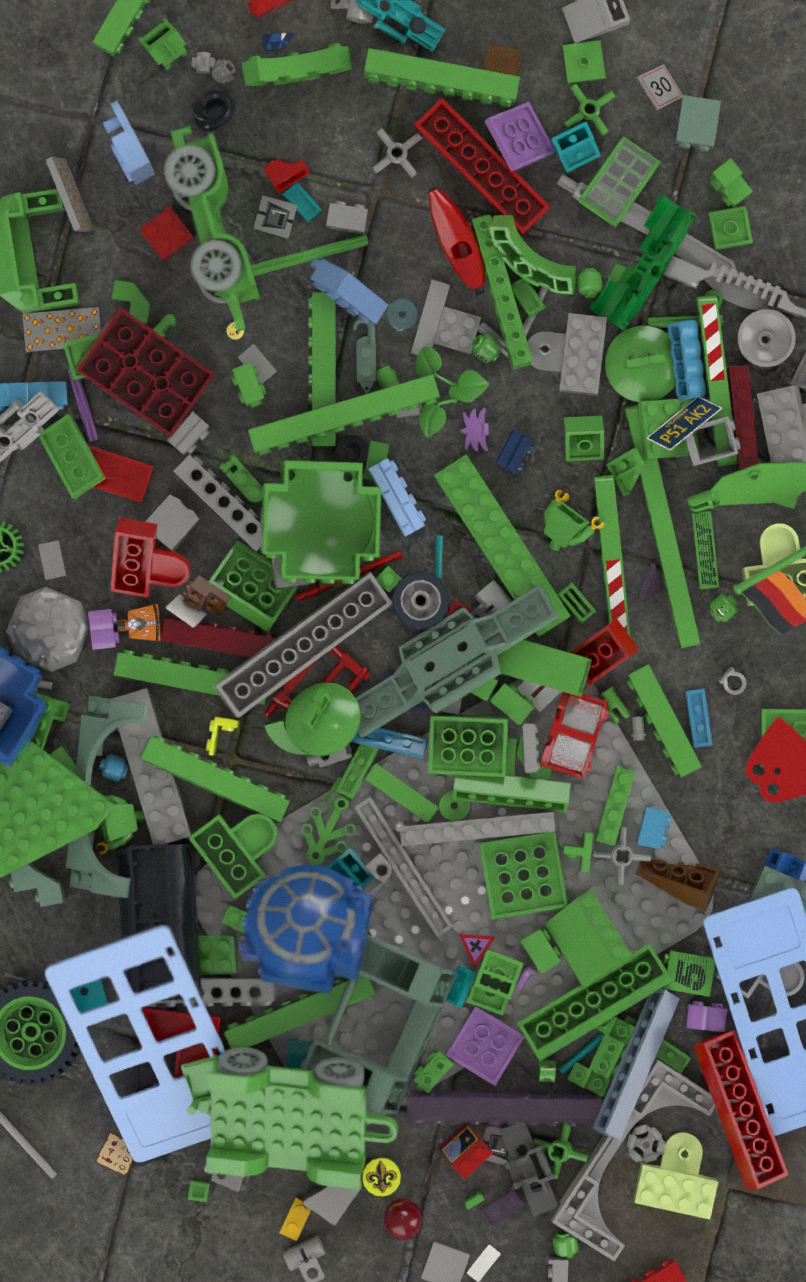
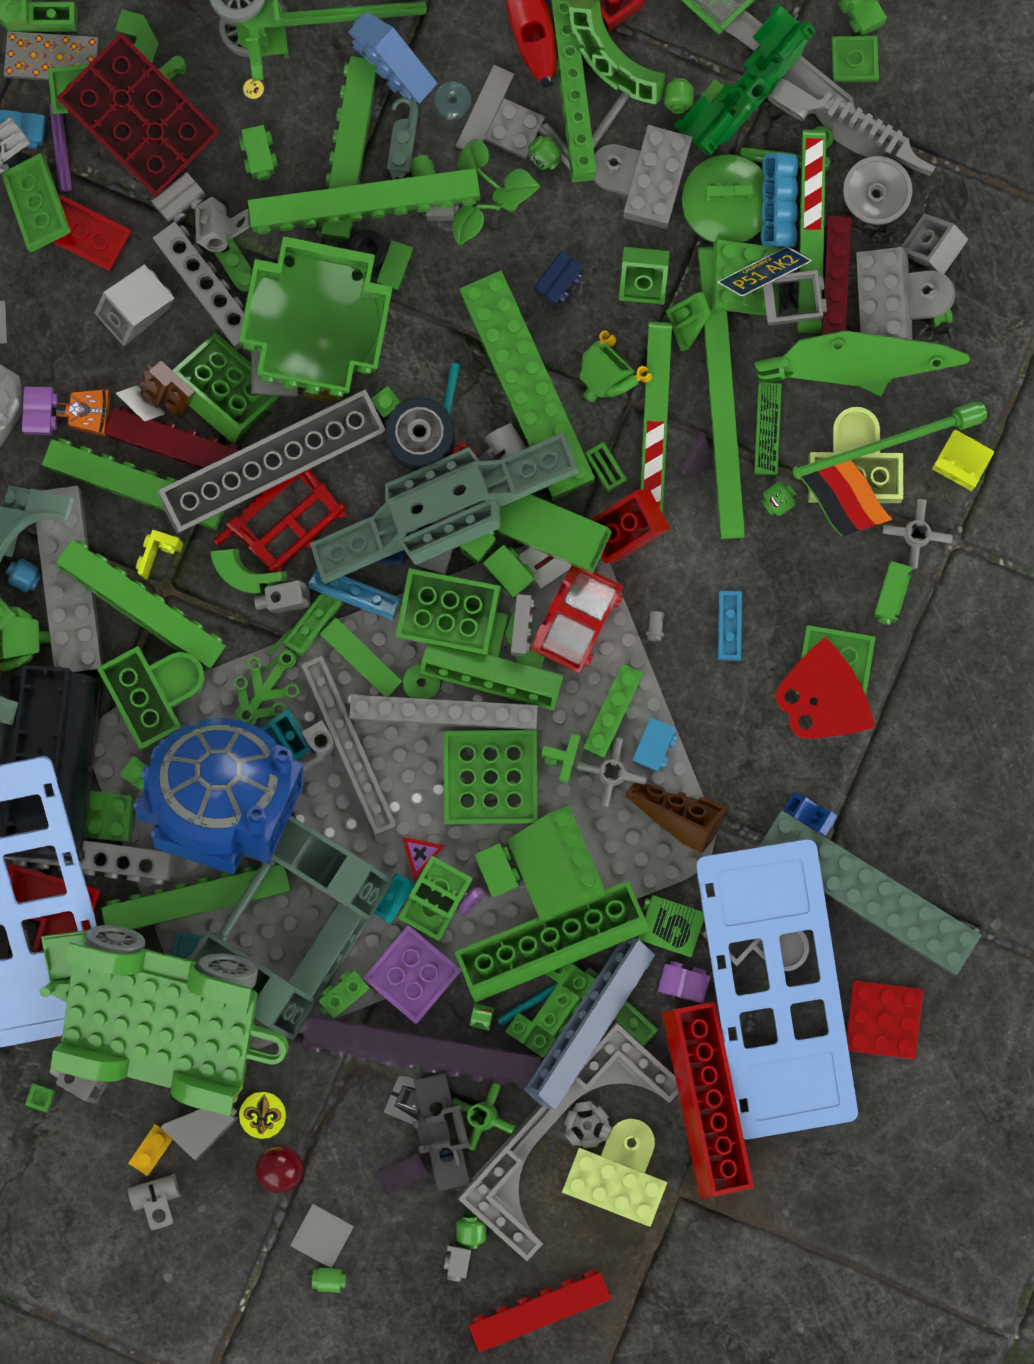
camera: 10 degrees right, 5 degrees down
(140, 564) = (93, 335): red brick -> none
(224, 454) = (214, 226): none -> light grey piece
(257, 359) = (280, 136): light grey sticker -> none
(315, 590) = (297, 405): red bar -> none
(323, 719) = (280, 553): bright green bracket -> none
(396, 497) = (411, 309): light blue brick -> none
(465, 1150) = (368, 1098): slope -> none
(474, 1200) = (369, 1160): bright green tile -> none
(475, 429) = (518, 247): medium lavender piece -> none
(483, 1263) = (369, 1240): white sticker -> none
(527, 297) = (603, 101): bright green tile -> none
(613, 702) = (629, 590): bright green hinge -> none
(664, 721) = (687, 620): bright green brick -> none
(723, 680) = (766, 584): light grey piece -> none

